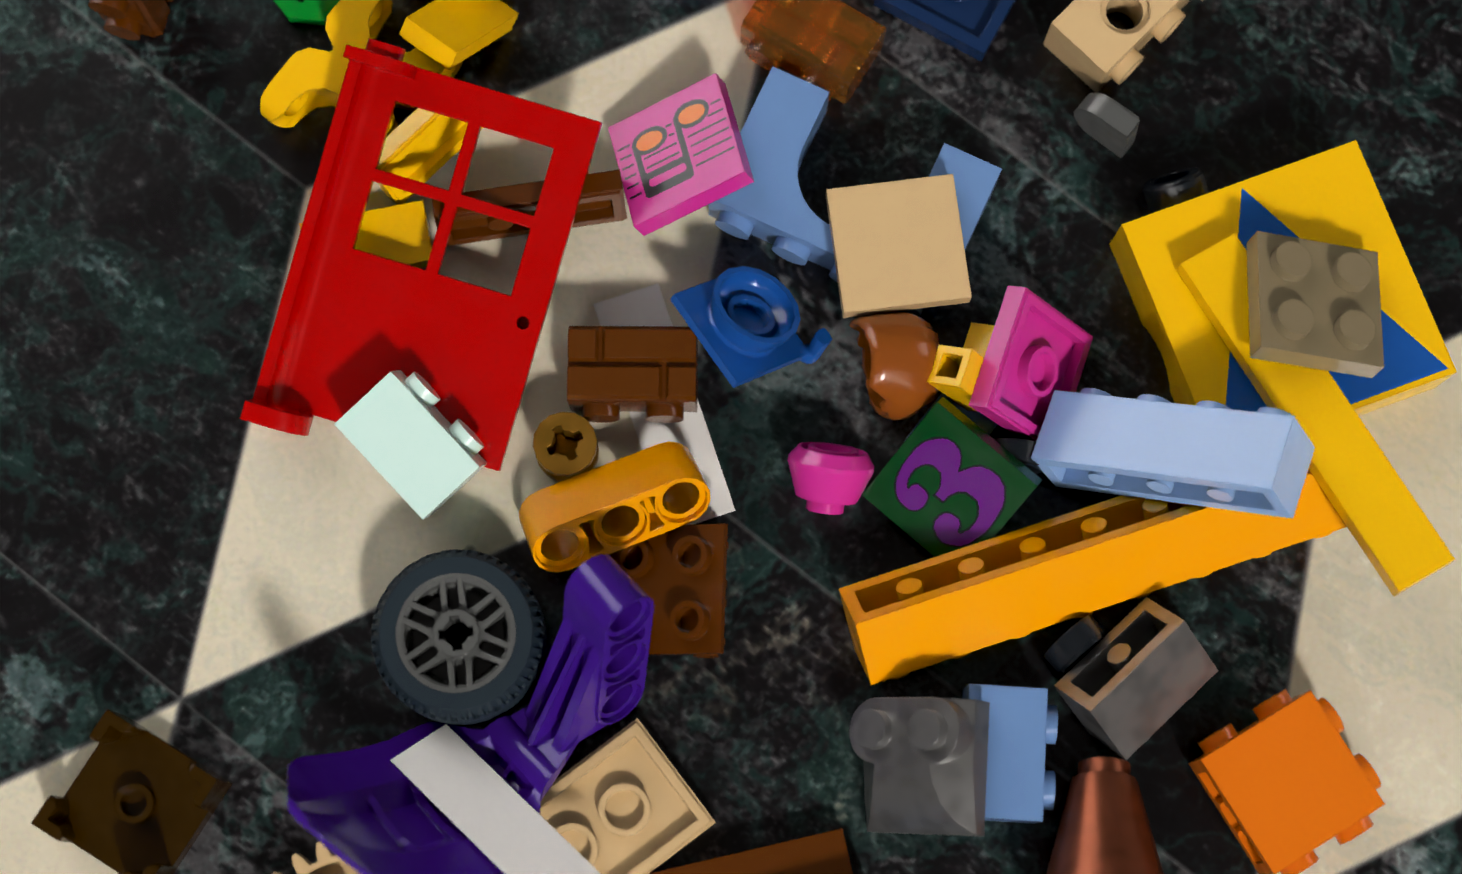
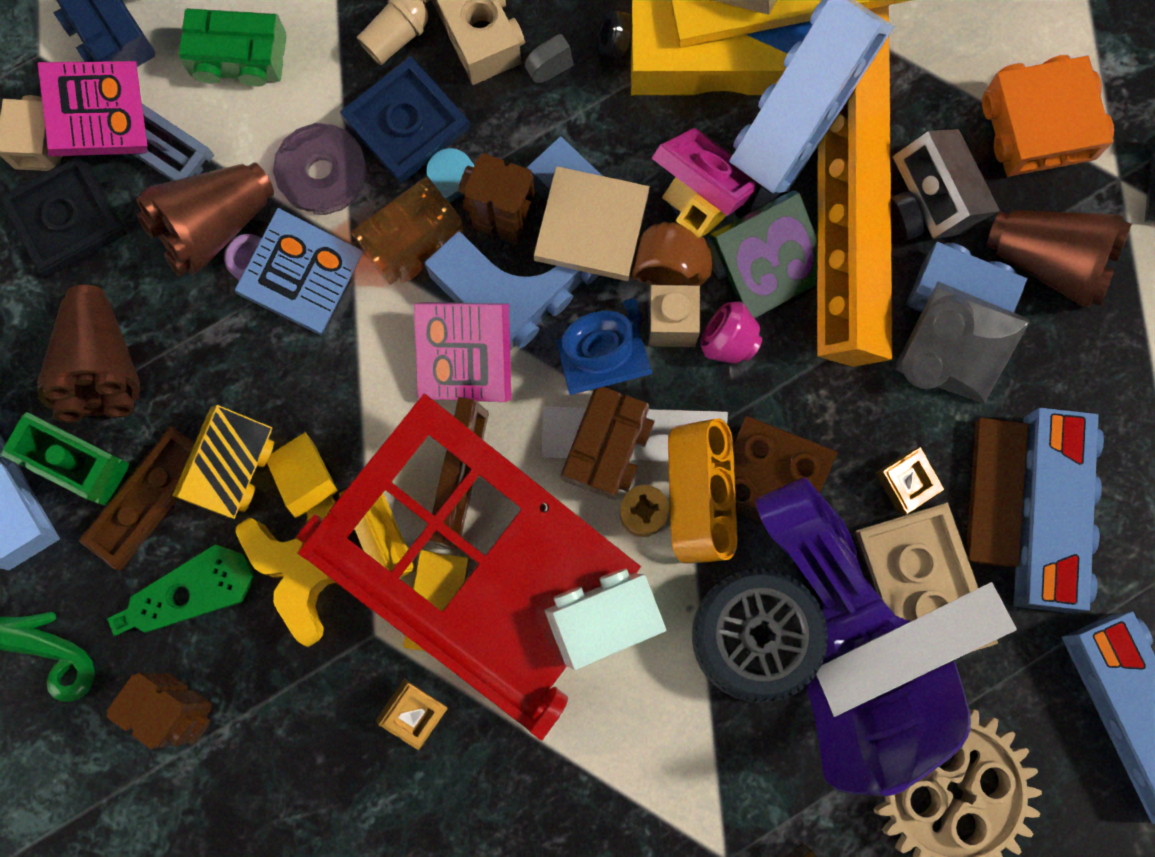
camera: 65 degrees left, 0 degrees up
(224, 263) = (411, 714): none -> pearl gold tile
(726, 764) = (909, 481): none -> tile
(825, 394) = (674, 316): none -> tan brick
(888, 124) = (499, 198): none -> reddish brown brick
(910, 61) = (446, 170): none -> medium azure tile

